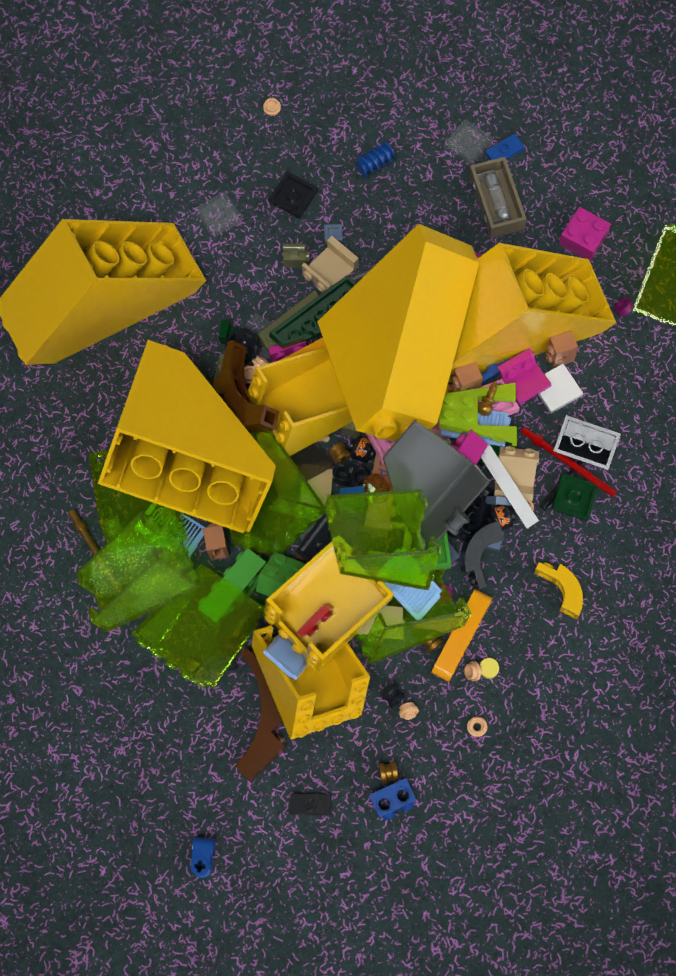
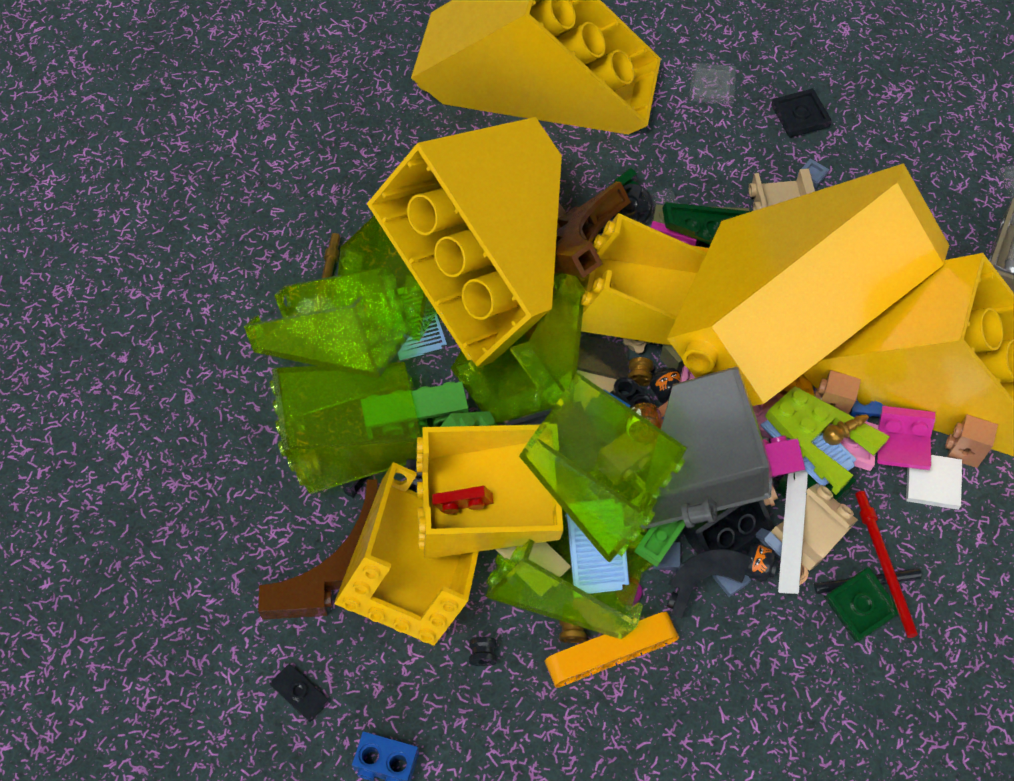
camera: 35 degrees right, 10 degrees down
(202, 852) = (147, 649): blue piece -> none
(216, 542) = (438, 358): nougat brick -> none
(272, 106) = (847, 27): light nougat plate -> none
(285, 657) = (399, 511): light blue window -> none
(295, 255) = (756, 160): olive brick -> none
(375, 158) = (914, 133): blue piece -> none
(388, 772) = (406, 727): pearl gold wheel -> none
(408, 711) = (485, 681): light nougat plate -> none
(473, 671) = (591, 697): light nougat plate -> none
(477, 720) = (541, 752): light nougat plate -> none
(489, 668) = (612, 709): light yellow tile -> none
(568, 586) = (777, 689): yellow arch -> none
(587, 442) = (924, 556): slope -> none

